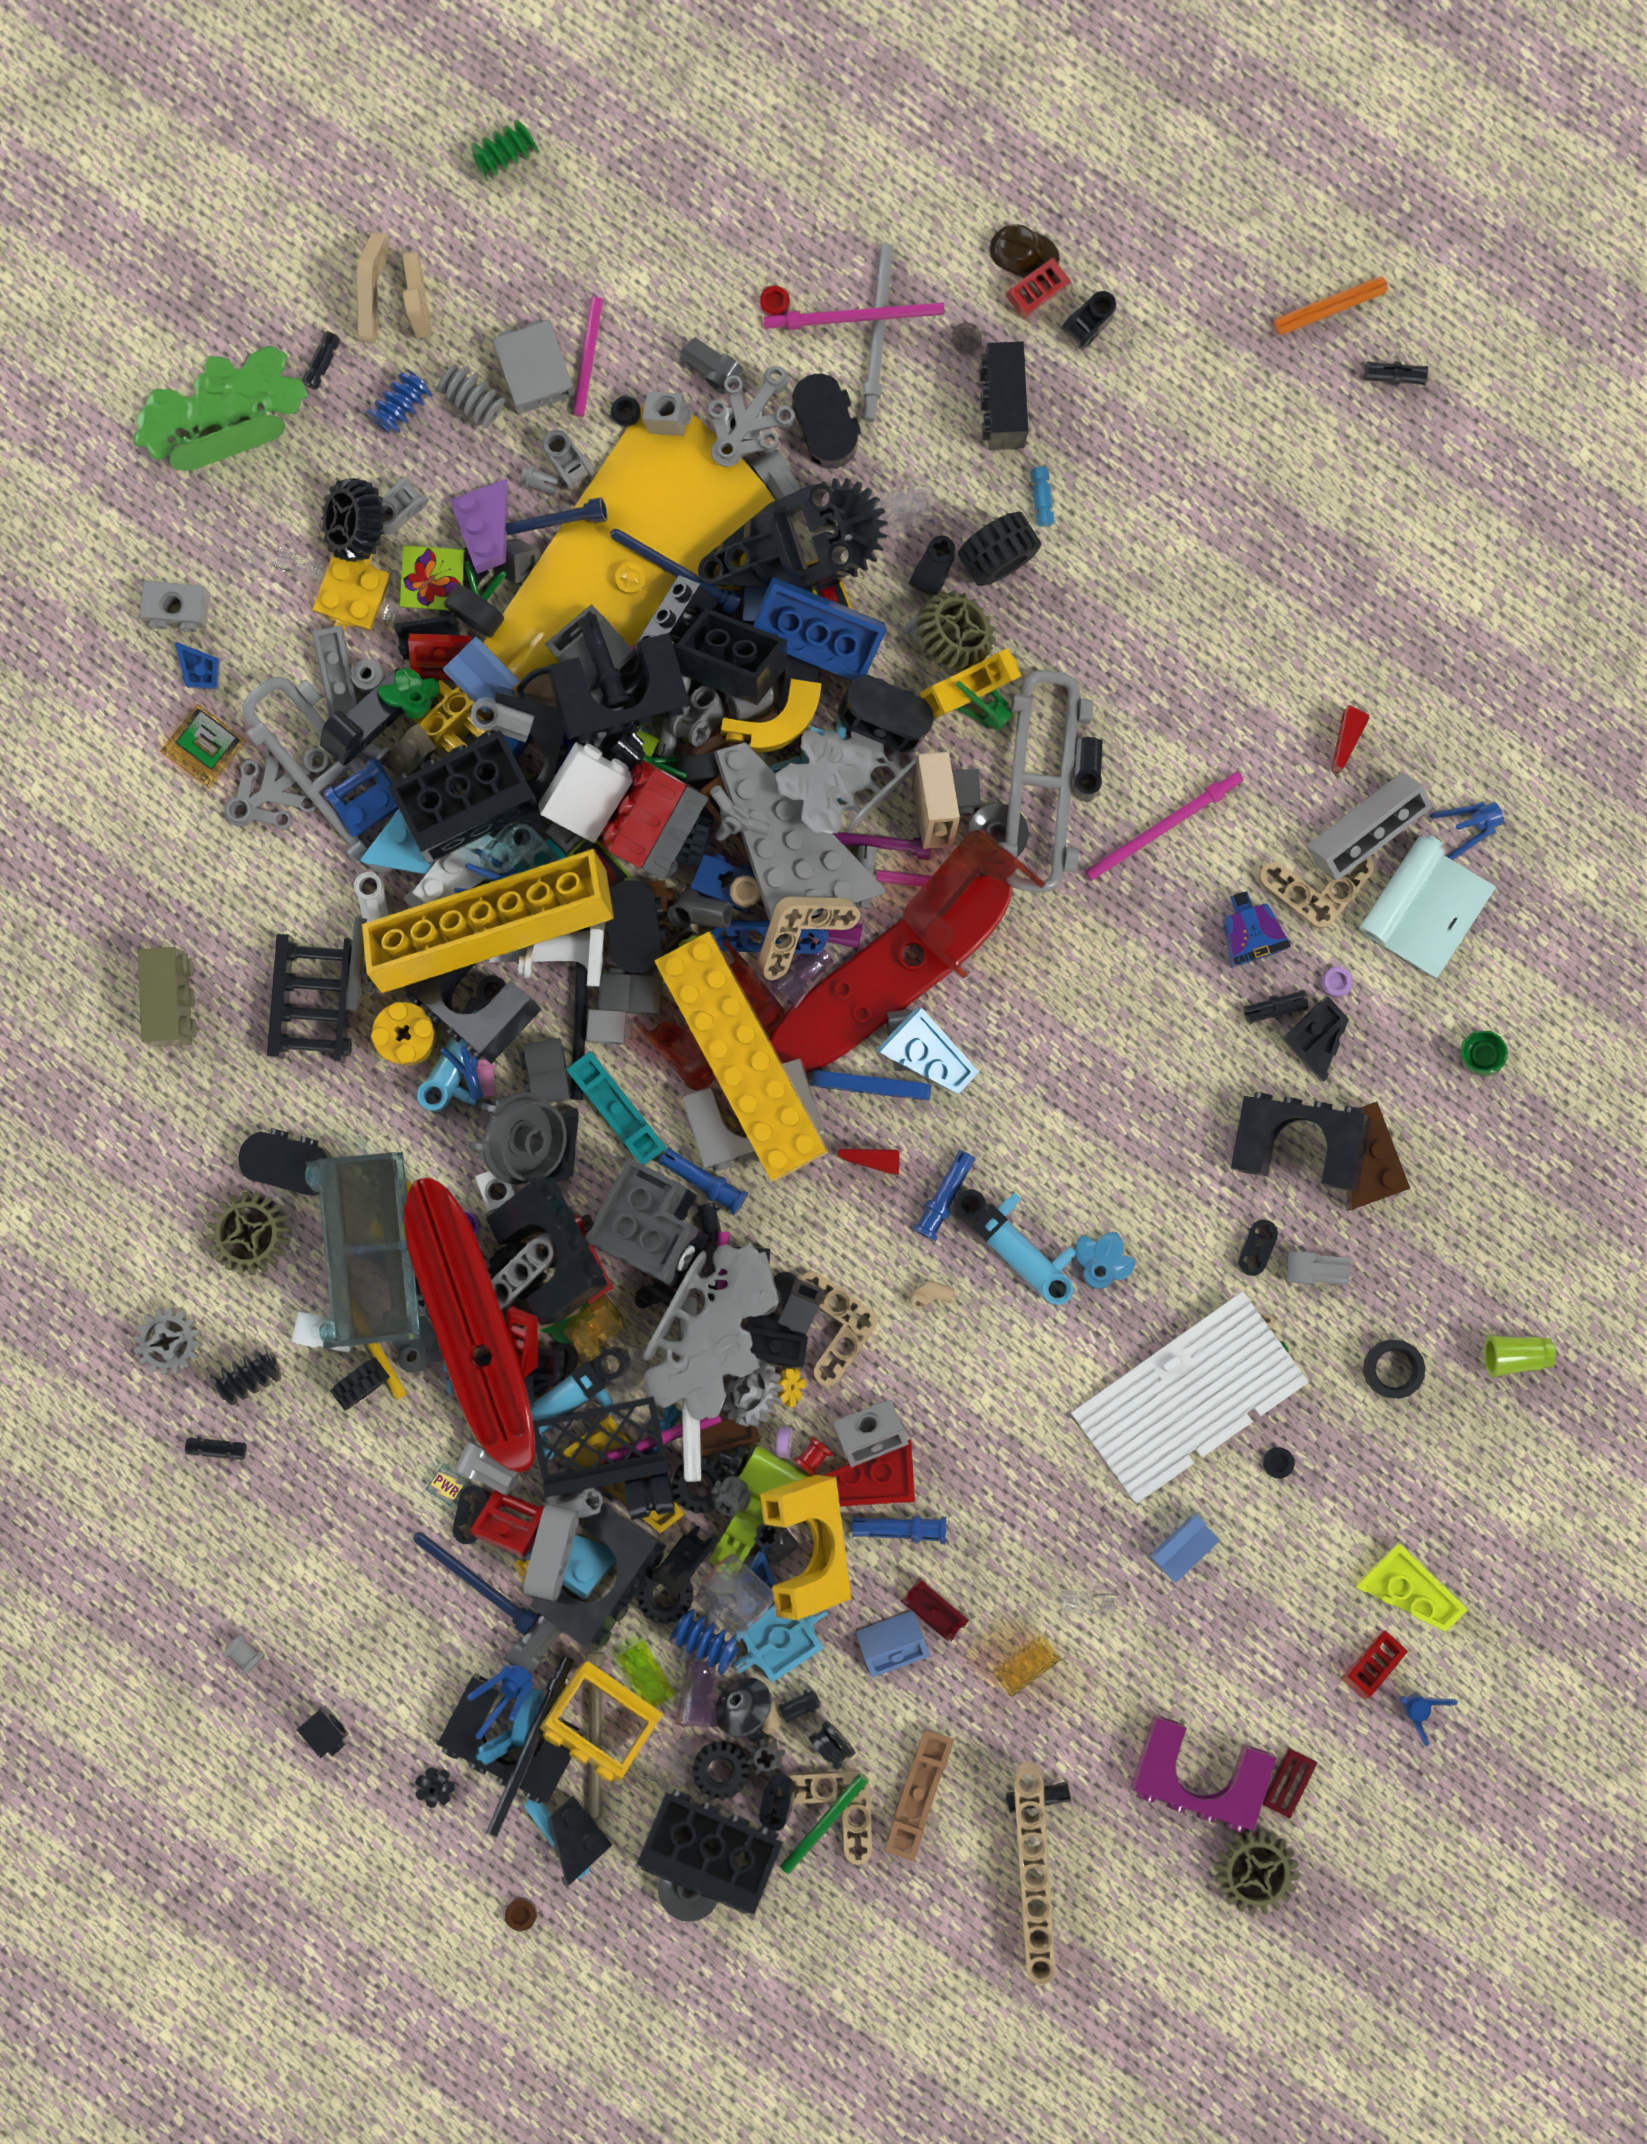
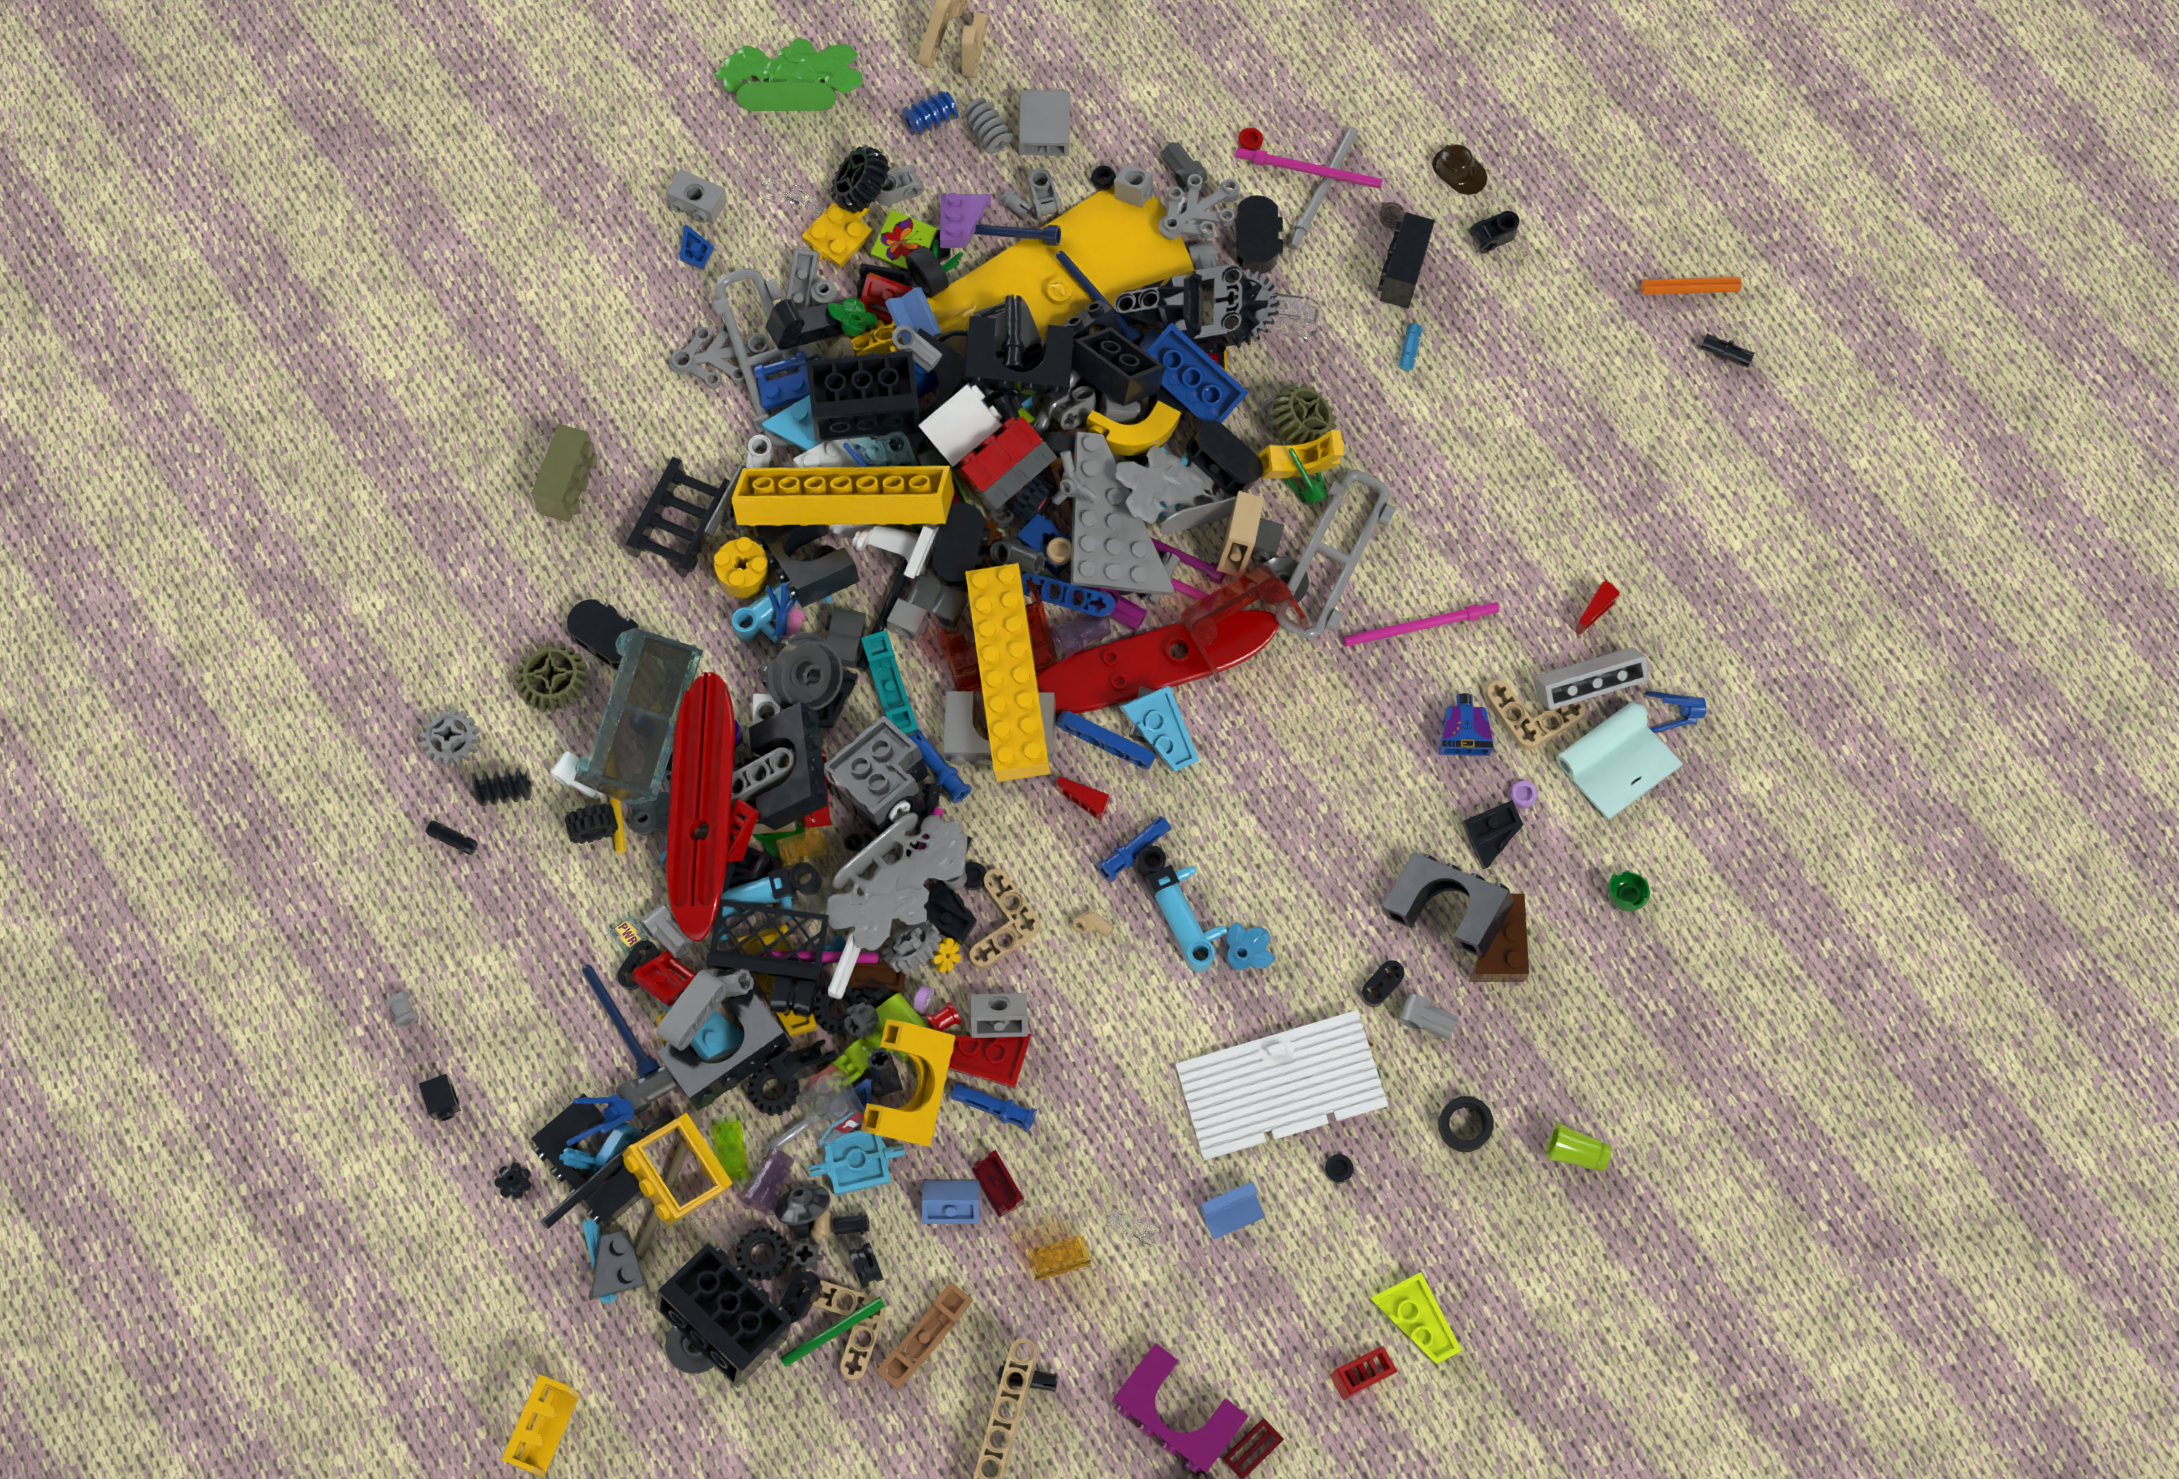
camera: 15 degrees right, 15 degrees down
(203, 746) = (674, 306): tile -> none
(321, 360) = (882, 66): black axle -> none
(390, 608) = (863, 255): clear bar -> none
(520, 560) = (976, 254): dark grey panel -> none
(521, 1914) = (541, 1316): reddish brown tile -> none
(570, 2060) = (547, 1430): none -> yellow window
(587, 357) = (1089, 131): dark pink bar -> none
(705, 1641) = (791, 1135): blue piece -> none
(799, 920) = (1094, 581): tan beam -> none
(801, 1306) = (979, 890): black brick -> none
(931, 570) = (1302, 368): black piece -> none
(999, 548) = (1361, 366): black tyre -> none
(1020, 303) = (1451, 190): red slope -> none
(1087, 766) = (1373, 558): black piece -> none
(1276, 1007) = (1465, 796): black pin -> none
(1419, 1710) = (1390, 1423): blue plant -> none

